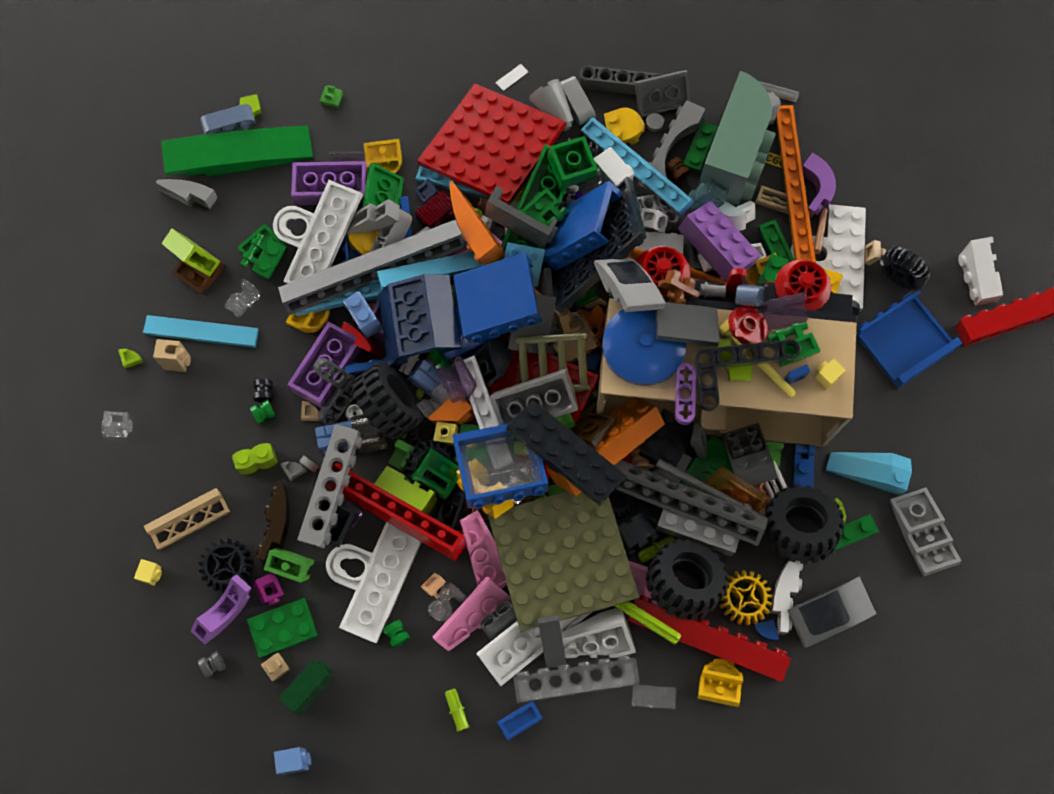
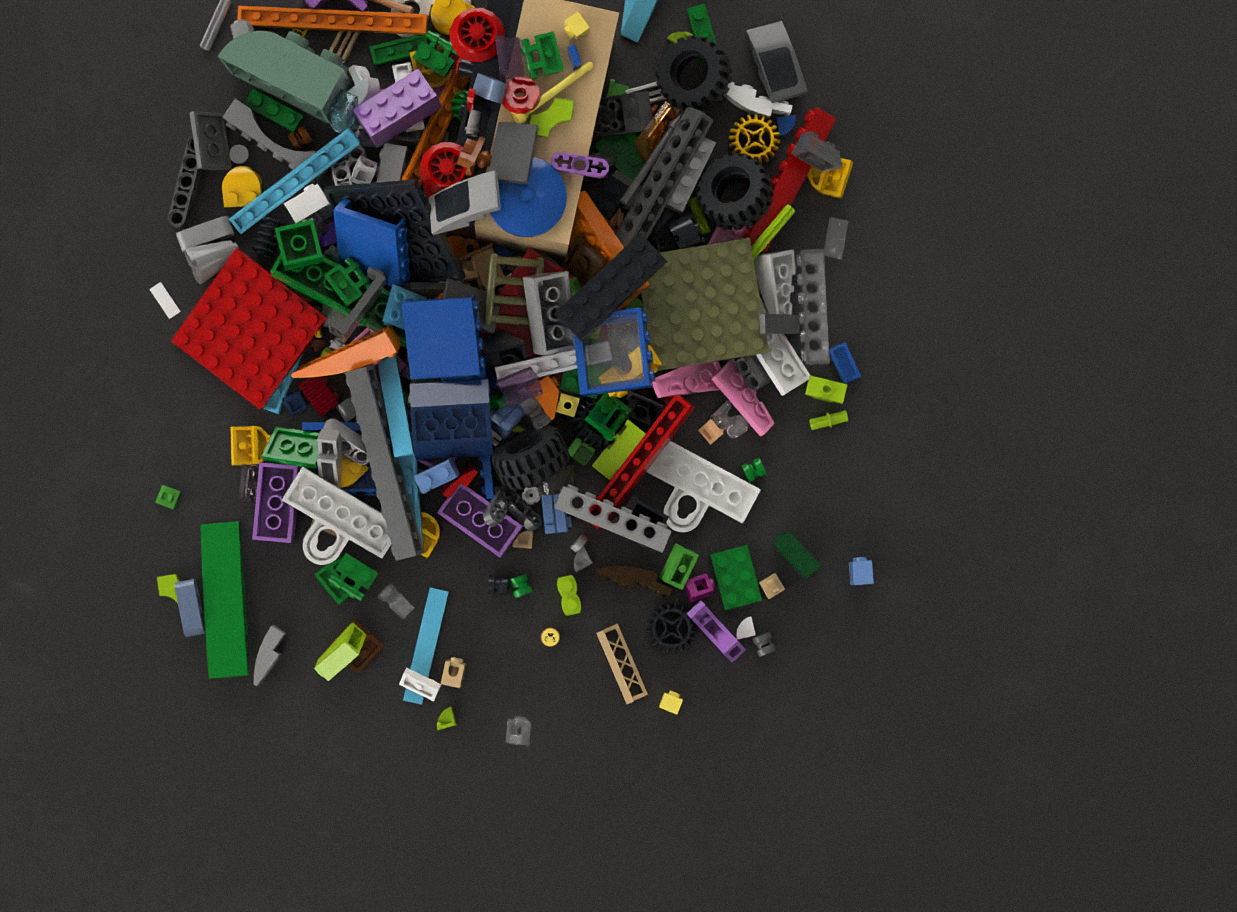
camera: 85 degrees left, 15 degrees up
(163, 321) = (420, 684): none -> white plate
(213, 446) = (550, 637): none -> light yellow tile
(228, 644) = (745, 629): none -> white tile
(488, 701) = (826, 390): none -> lime brick
(736, 361) = (557, 112): black beam -> none
(742, 661) = (817, 153): none -> dark grey slope
(803, 468) = (635, 64): blue plate -> none

